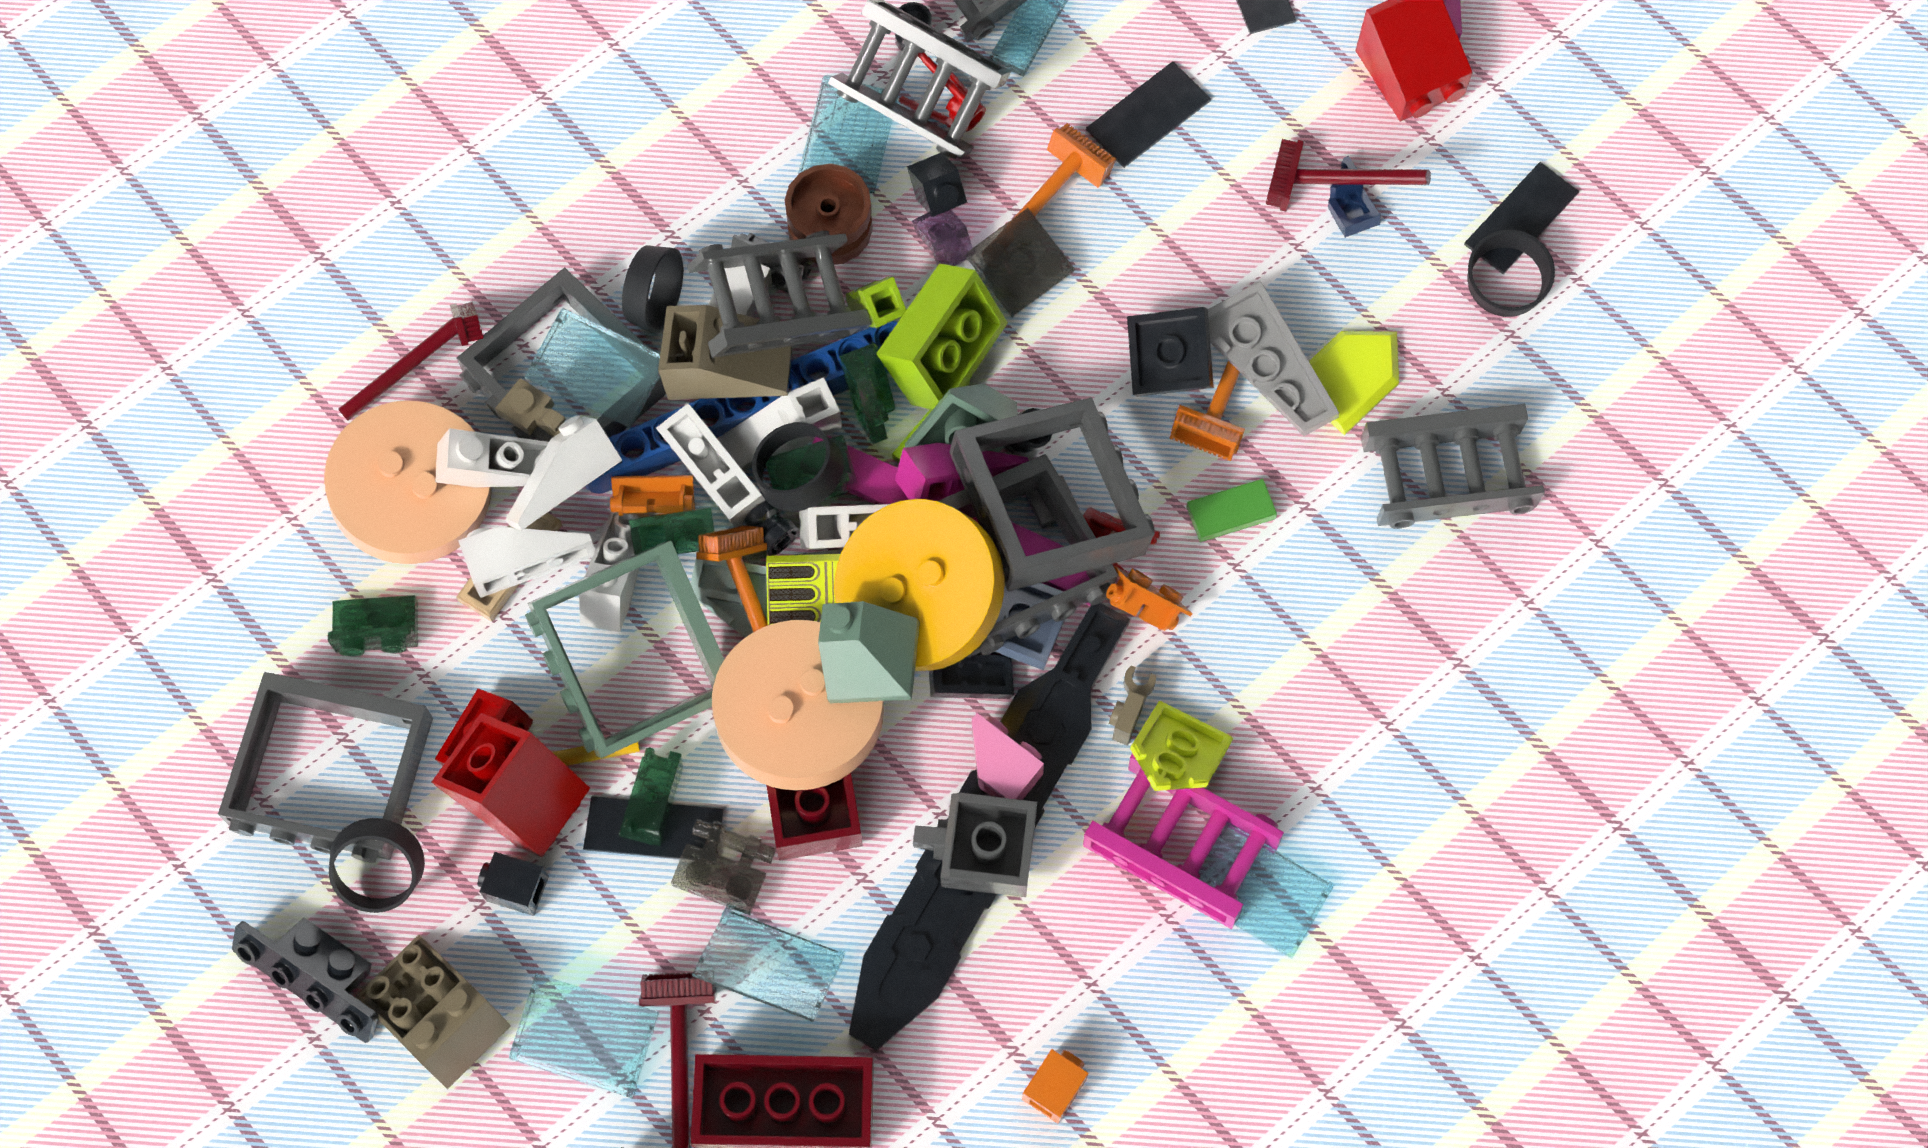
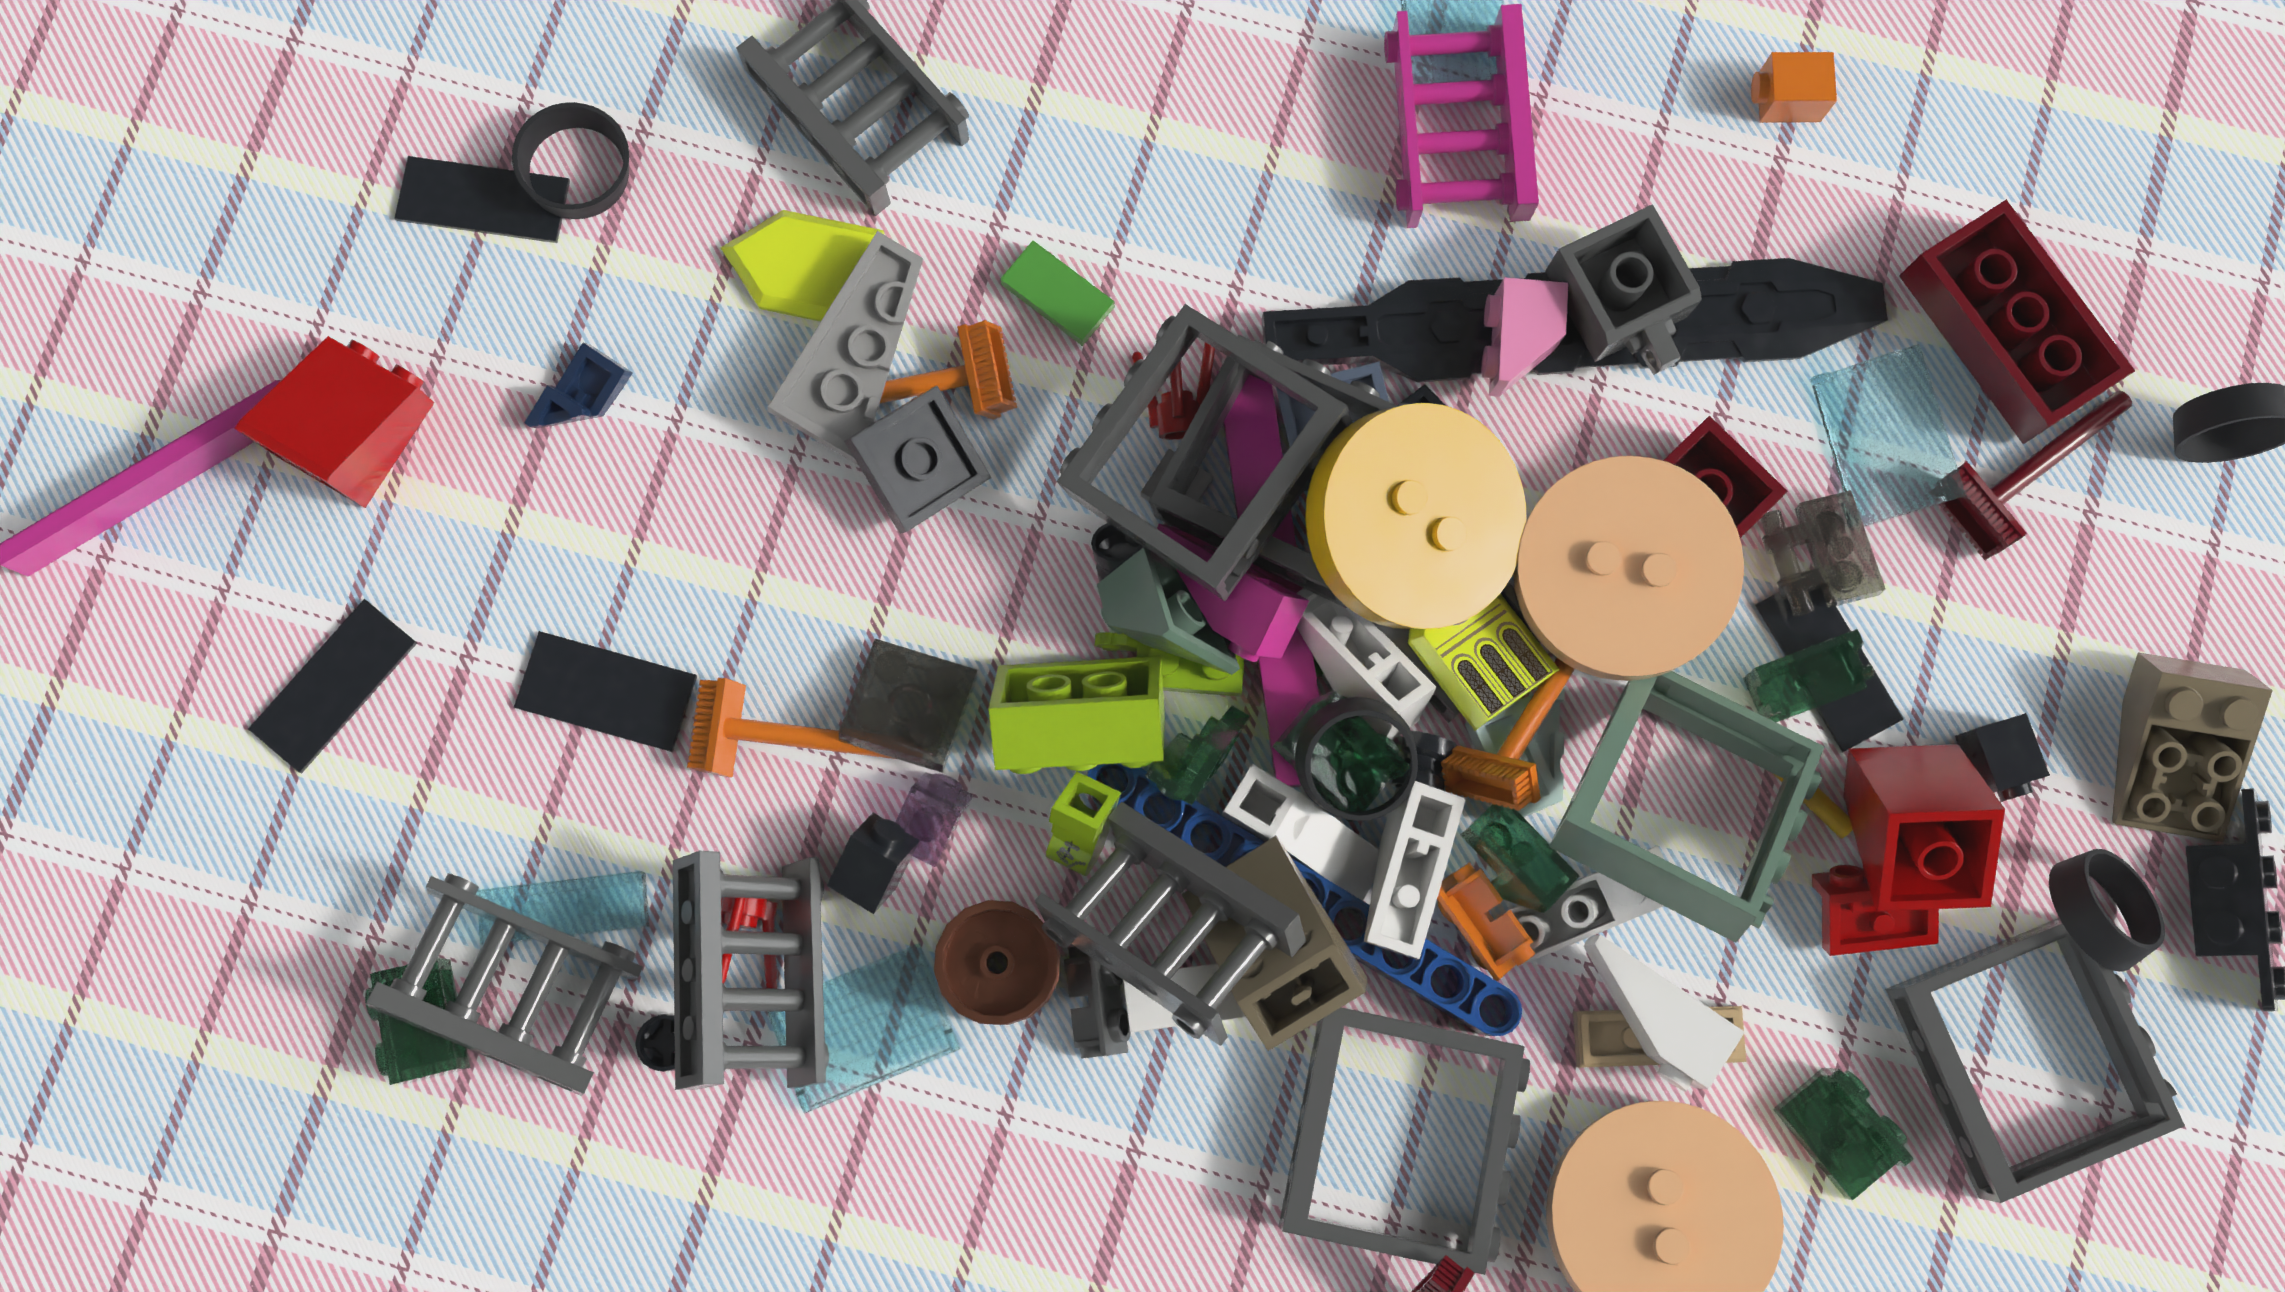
camera: 125 degrees left, 10 degrees up
(486, 459) = (1582, 1114): white slope -> none
(528, 408) = (1492, 1134): dark tan plate -> none
(566, 466) = (1551, 1022): white slope -> none
(584, 1035) = (2090, 572): clear light blue piece -> none
(595, 367) = (1386, 1092): clear light blue piece -> none
(666, 290) = (1237, 1103): black tyre -> none
(867, 652) = (1543, 506): sand green slope -> none
(1127, 714) = (1364, 251): dark tan plate -> none
(1161, 604) = (1229, 300): orange hinge -> none
(1178, 749) = (1380, 168): neon yellow tile -> none
(1287, 174) = (592, 477): dark red piece -> none

